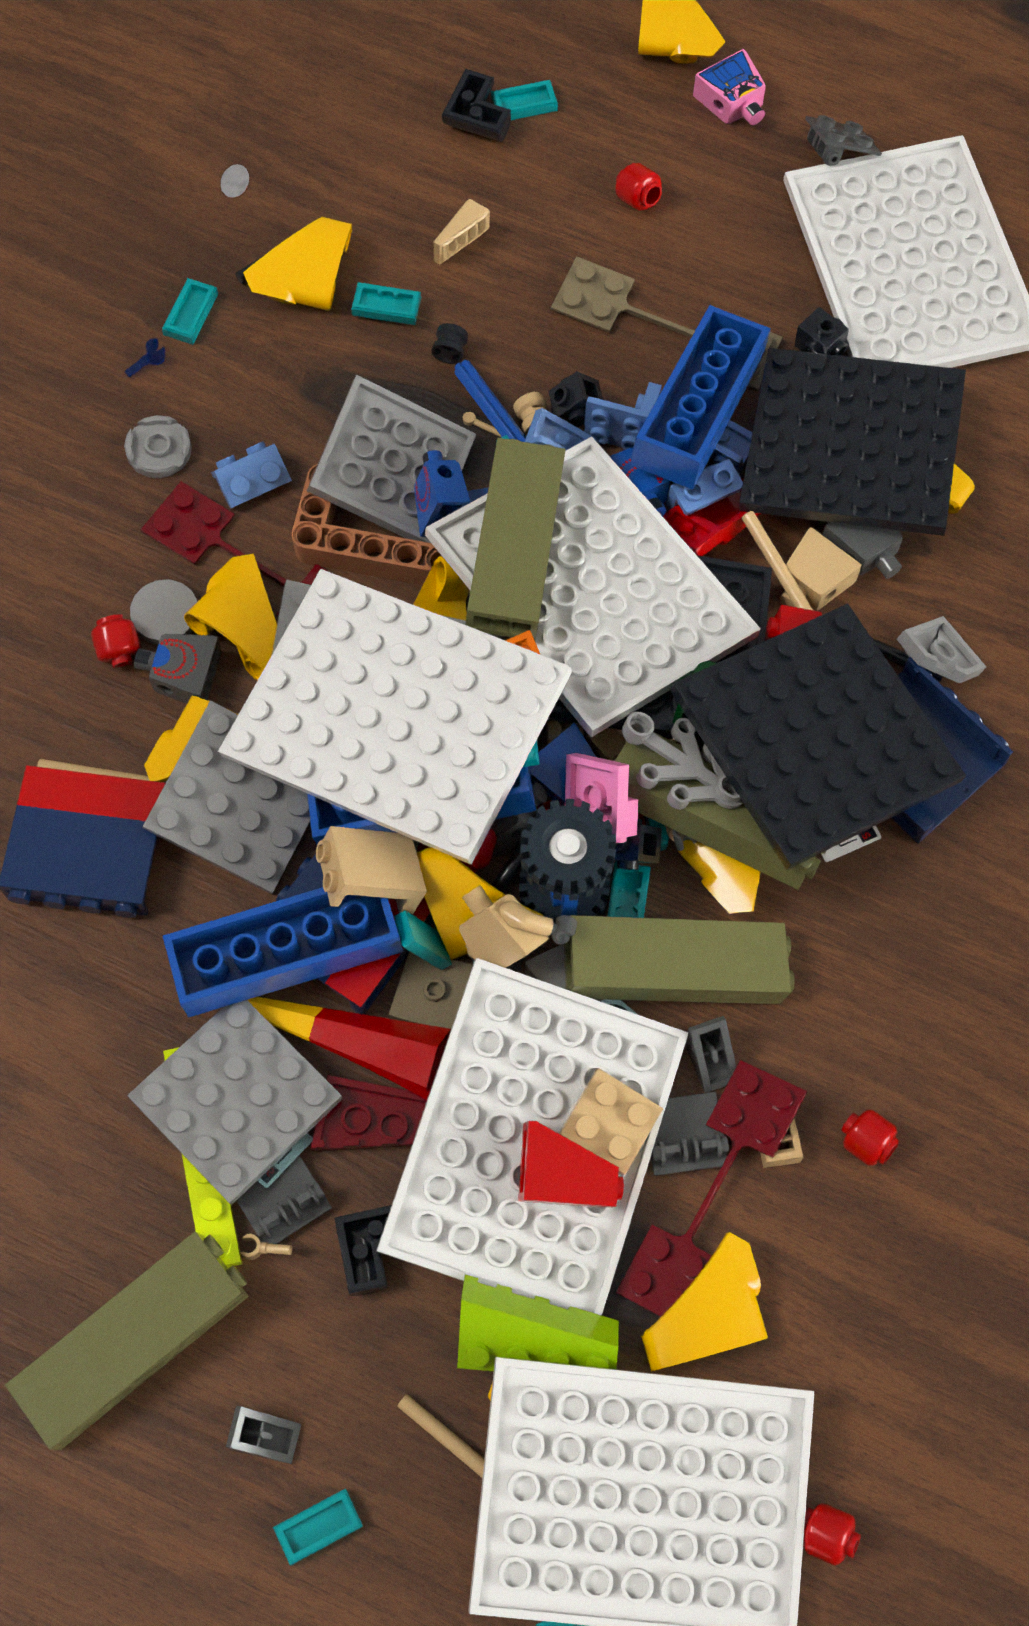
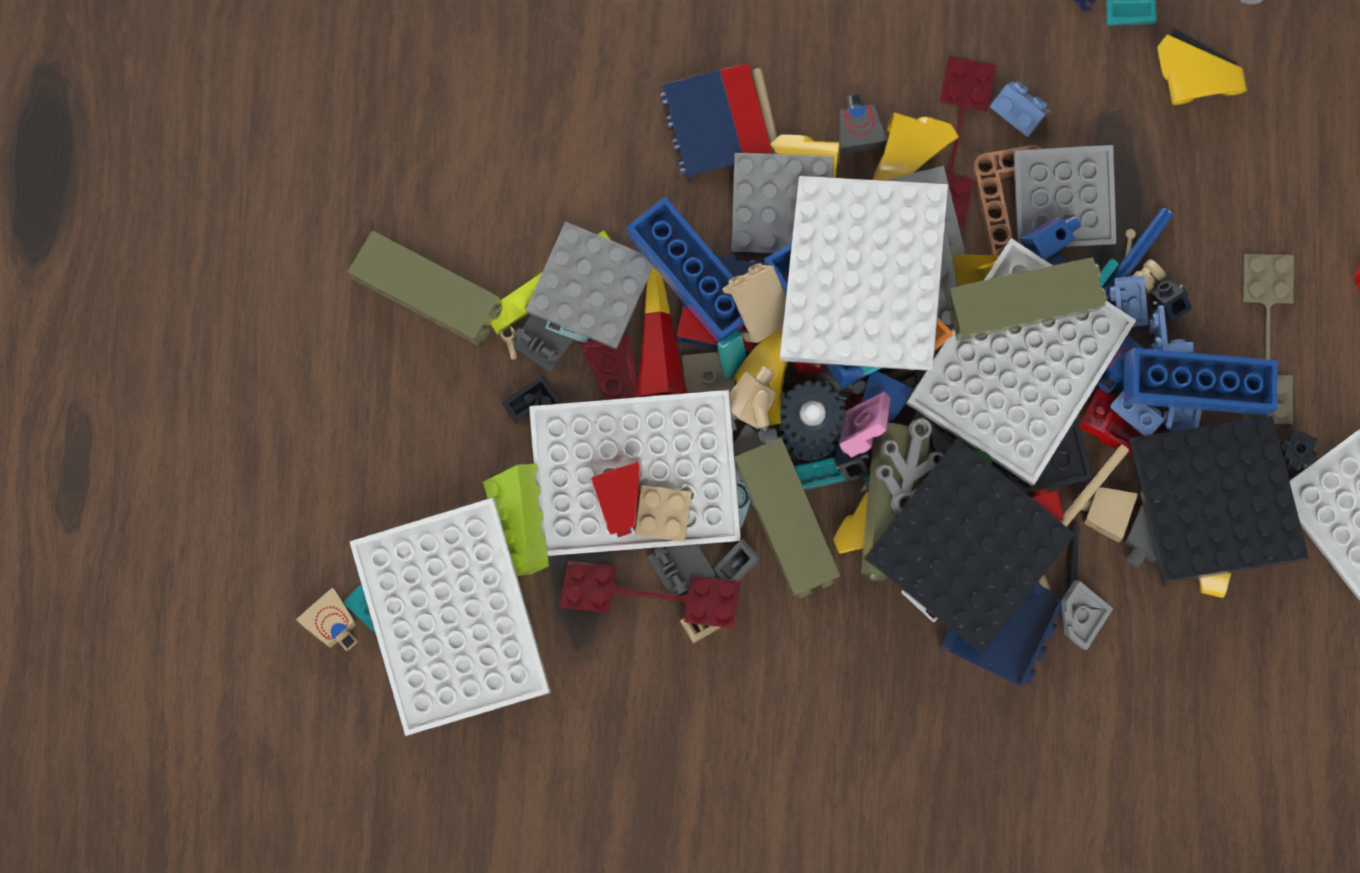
camera: 70 degrees right, 10 degrees up
(115, 640) = (859, 77): red head -> none
(158, 446) = (1016, 38): light grey tile -> none
(161, 609) = (897, 95): light grey tile -> none
(263, 1435) = (402, 387): dark grey slope -> none
(318, 1527) = (366, 441): teal tile -> none
(386, 303) = (1194, 140): teal plate -> none
(442, 1434) = (446, 486): tan bar -> none
(449, 343) = (1180, 197): black wheel -> none
(463, 228) = (1279, 167): tan slope -> none
(713, 1312) = (576, 620): yellow panel -> none
(830, 1534) = (474, 734): red head -> none
(870, 1137) = (722, 679): red head -> none

